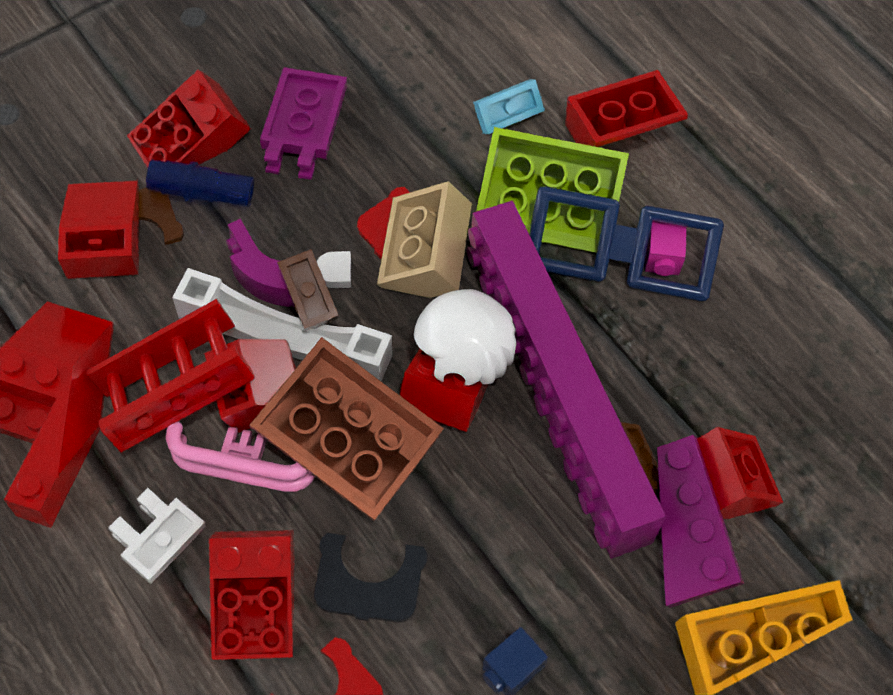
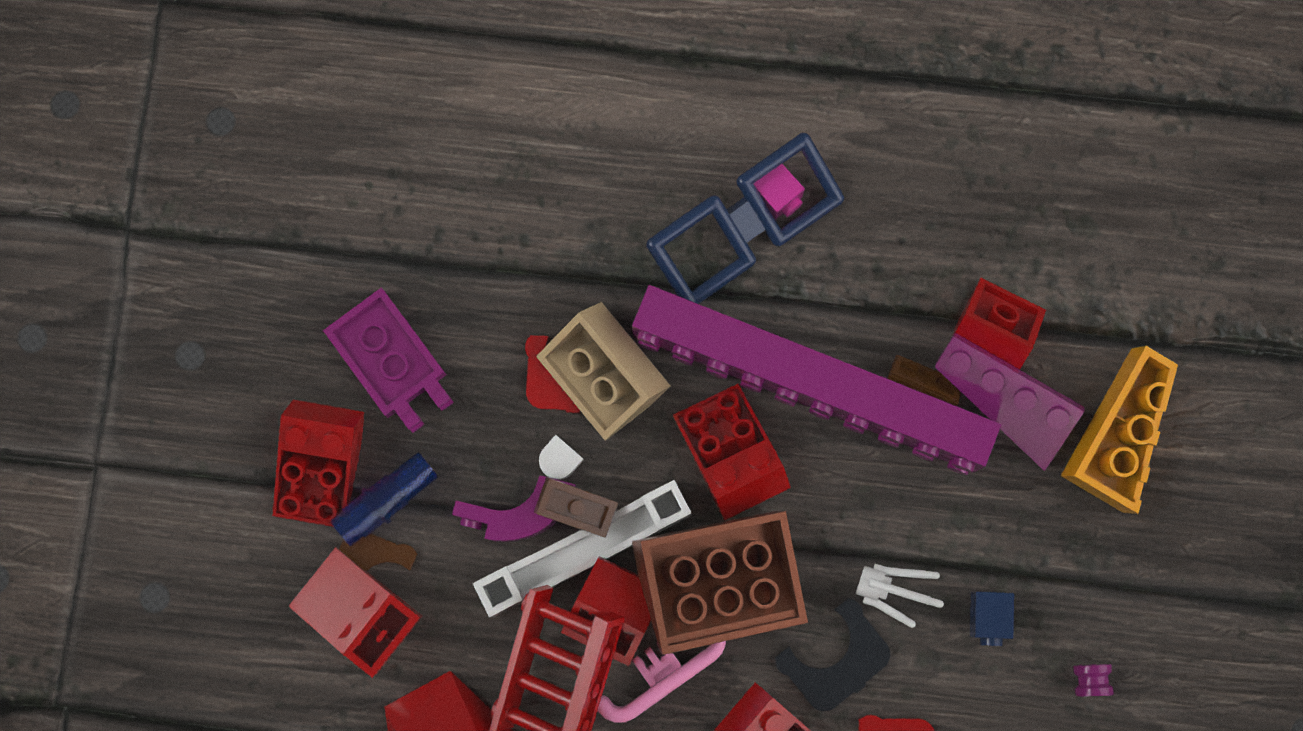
camera: 35 degrees left, 20 degrees up
(455, 556) = (876, 585): none -> white plant
(467, 336) = (731, 429): white piece -> none
(509, 106) = (535, 183): medium azure plate -> none
(525, 162) = (616, 220): lime slope -> none
(622, 110) = (636, 104): red slope -> none

